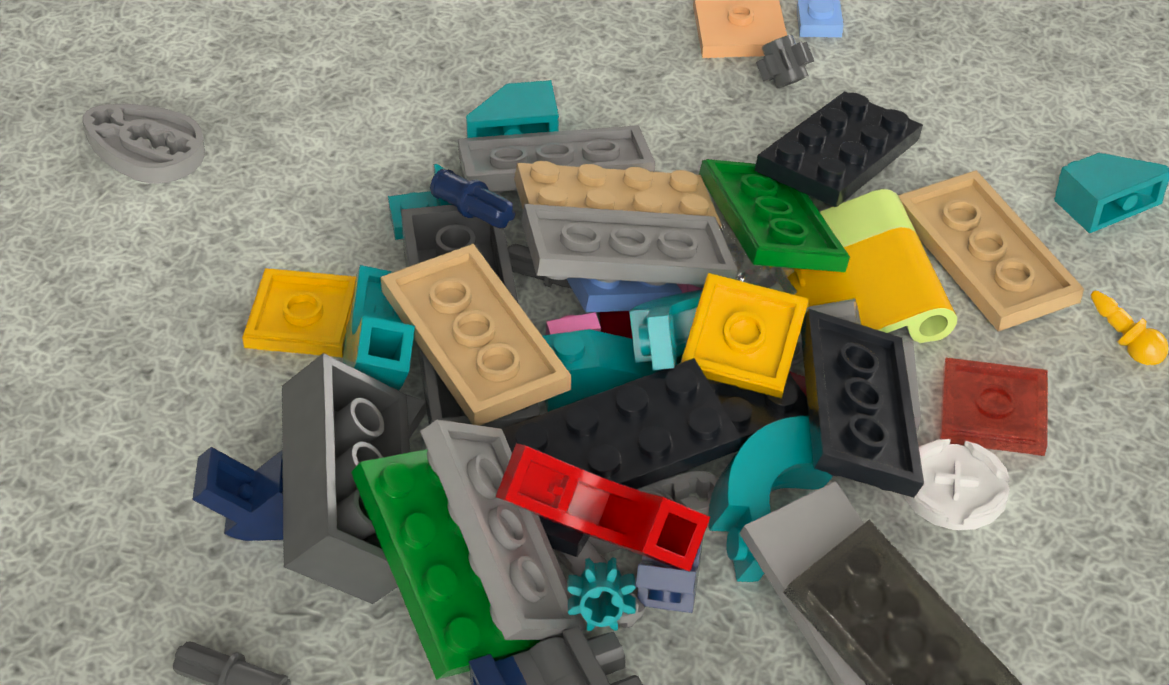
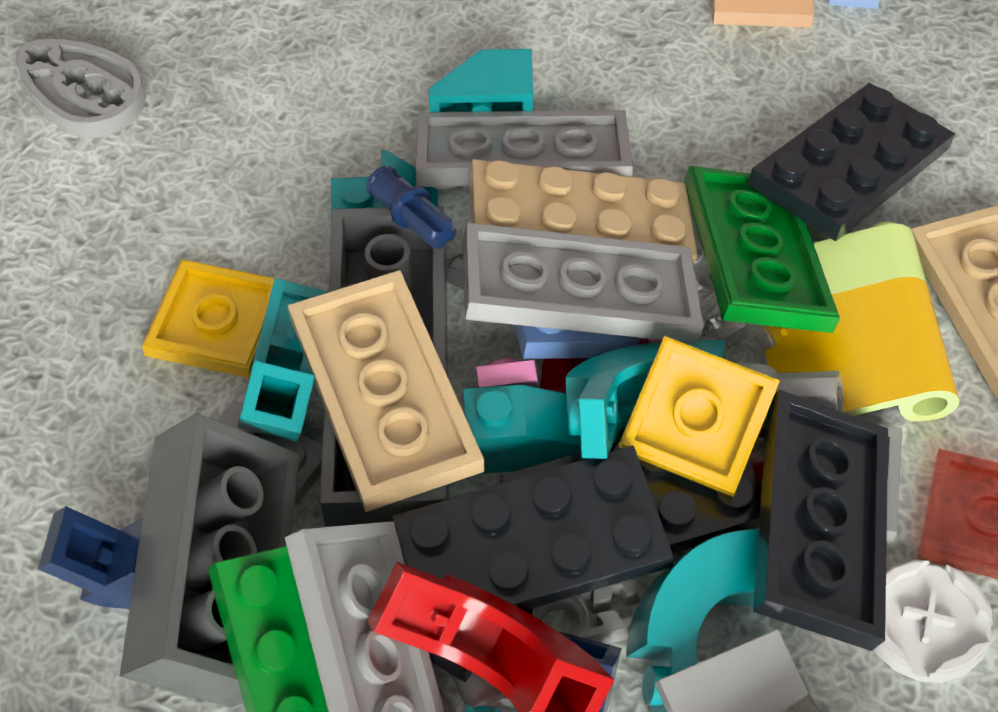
camera: 10 degrees right, 10 degrees up
(785, 61) = (805, 40): dark grey gear -> none

